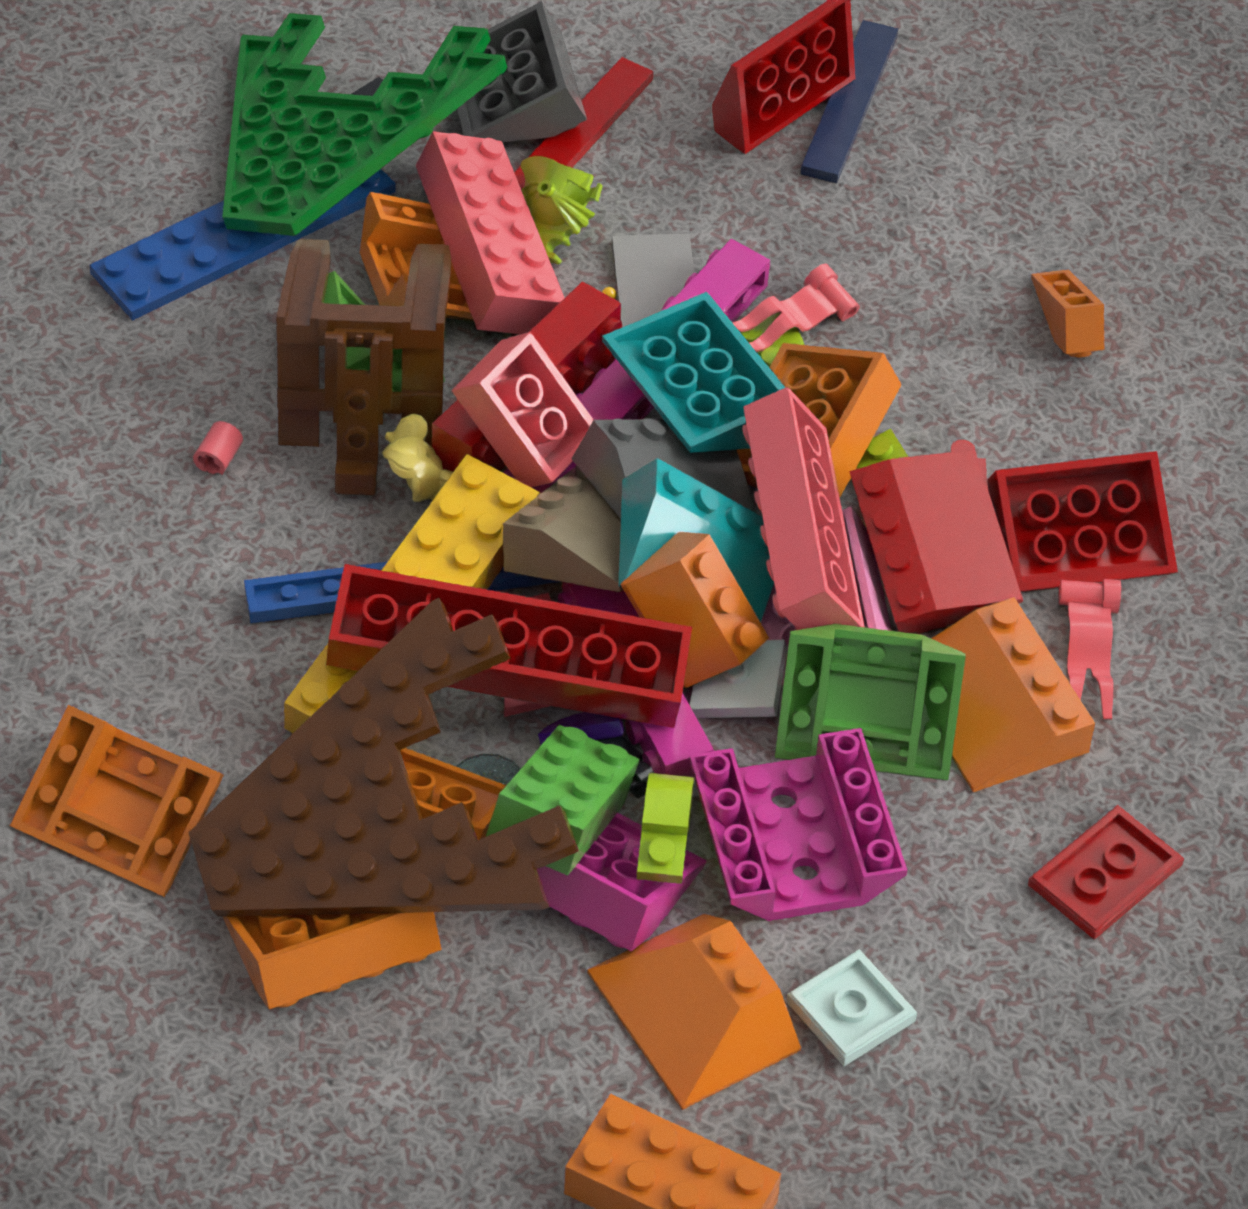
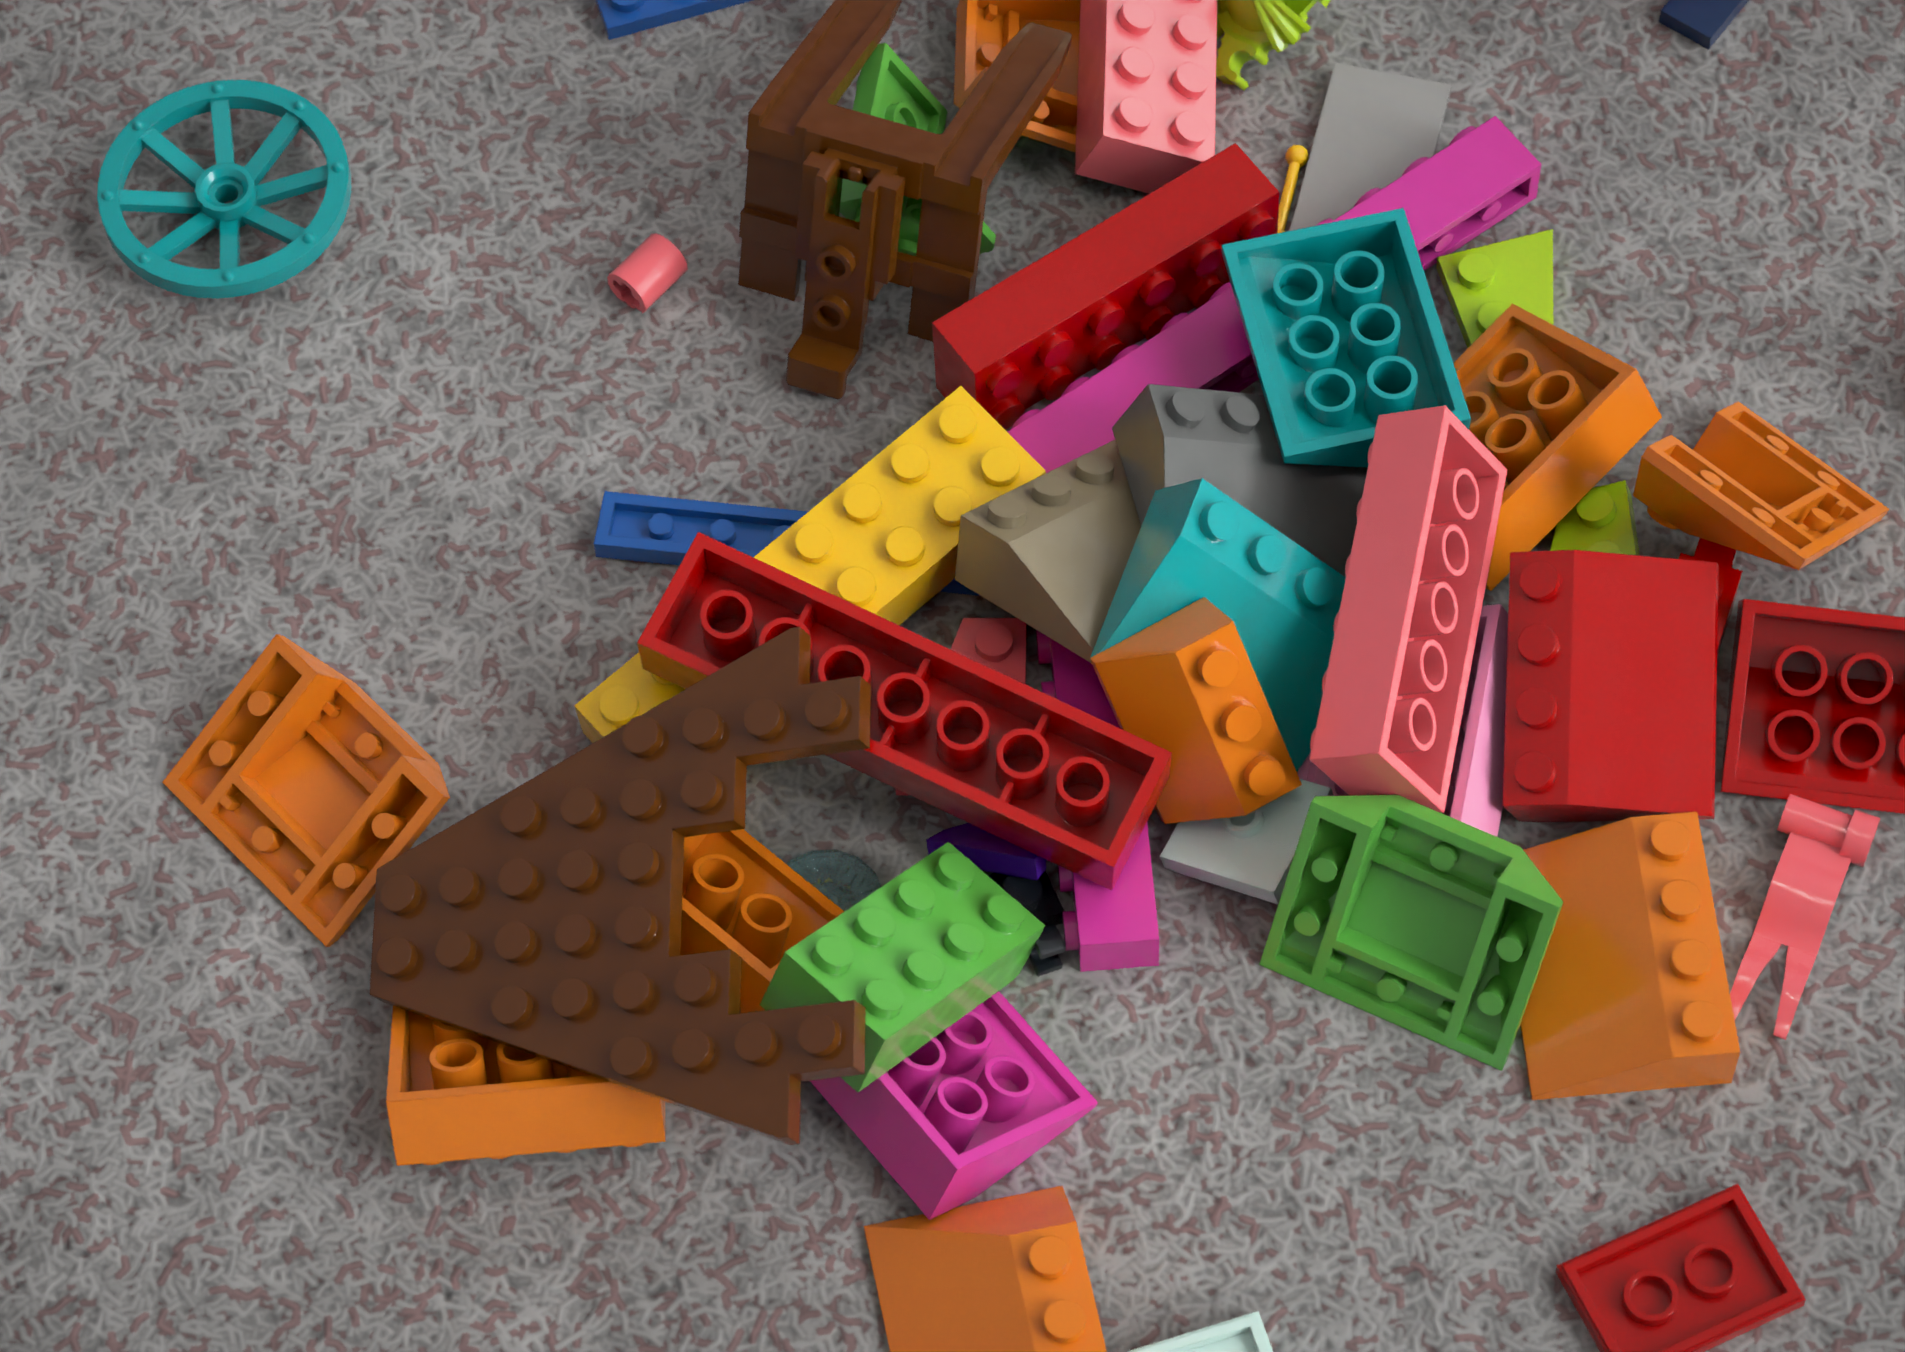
camera: 25 degrees right, 10 degrees up
(415, 459) = (901, 363): light yellow hair -> none
(525, 409) = (1063, 338): coral brick -> none
(665, 828) = (1039, 1028): lime arch -> none
(804, 310) = (1562, 255): coral flag -> none
(833, 827) = (1183, 1095): dark pink slope -> none
(964, 413) = (1753, 491): none -> orange slope

